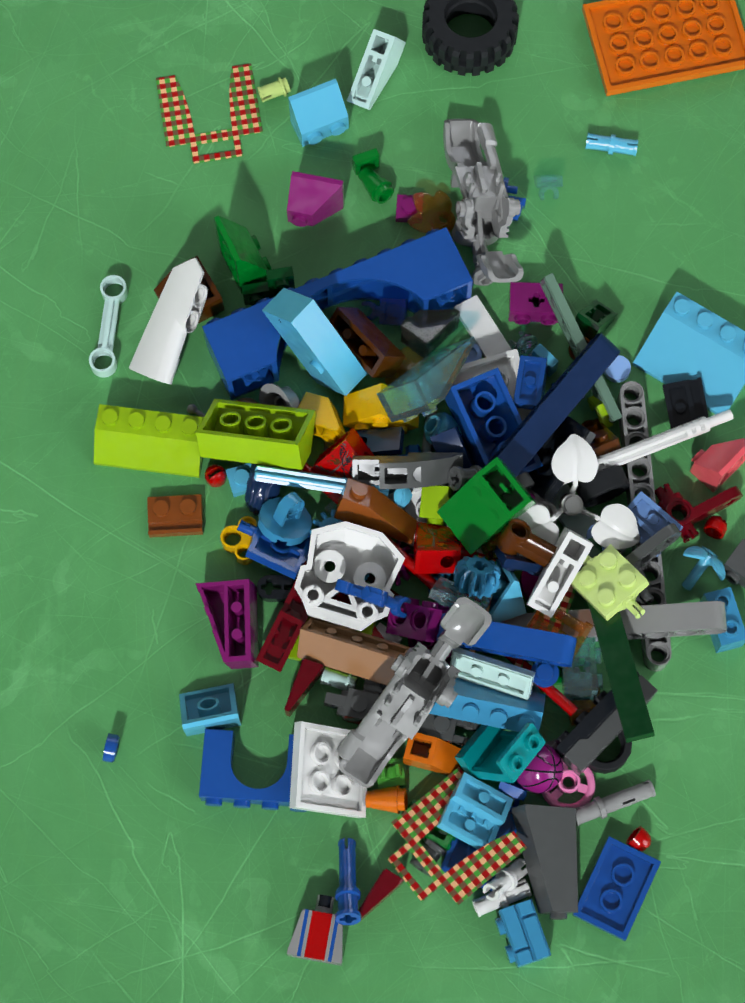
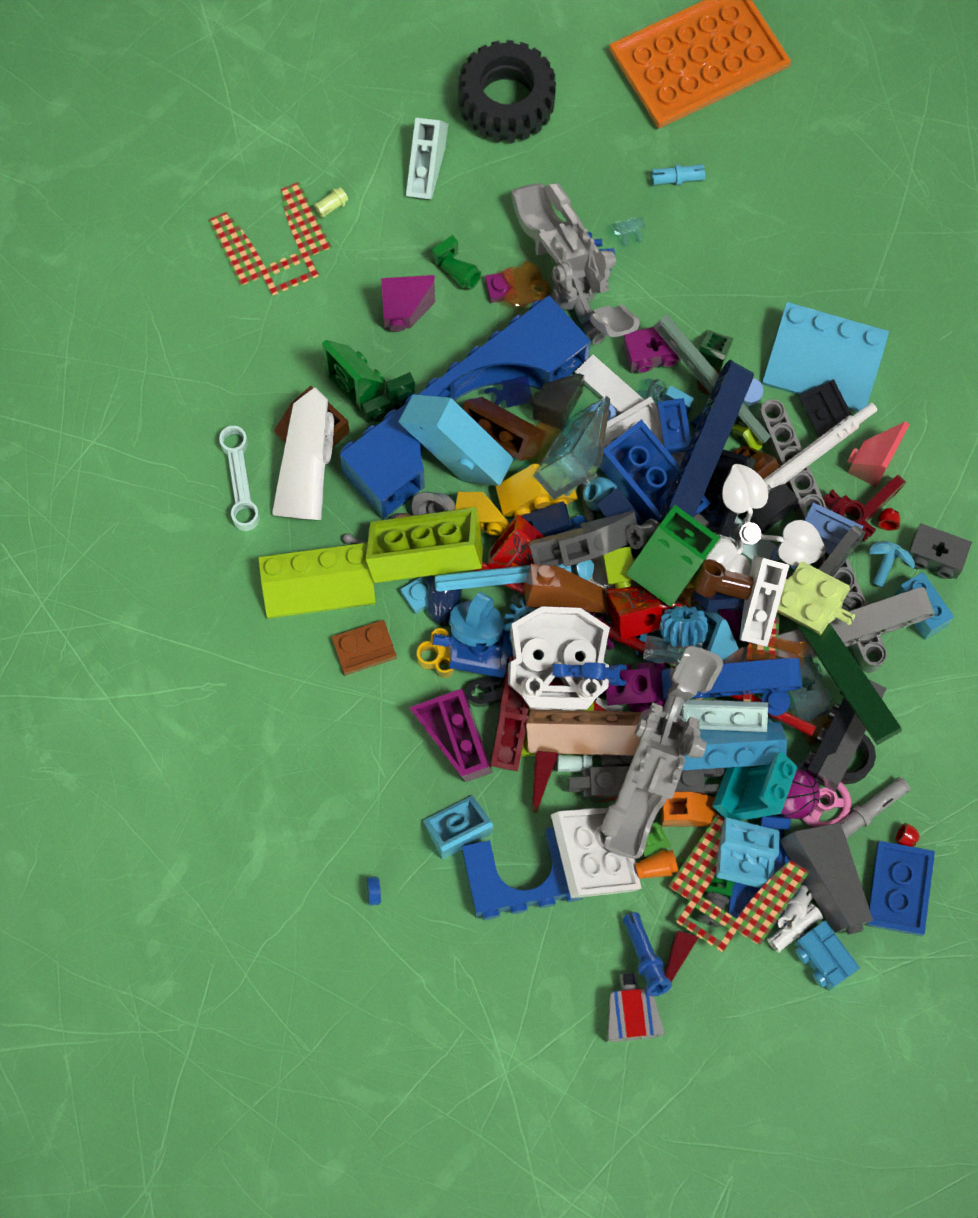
camera: 20 degrees left, 0 degrees up
(218, 479) = (395, 602): red hinge -> none
(318, 113) = (384, 215): medium azure slope -> none

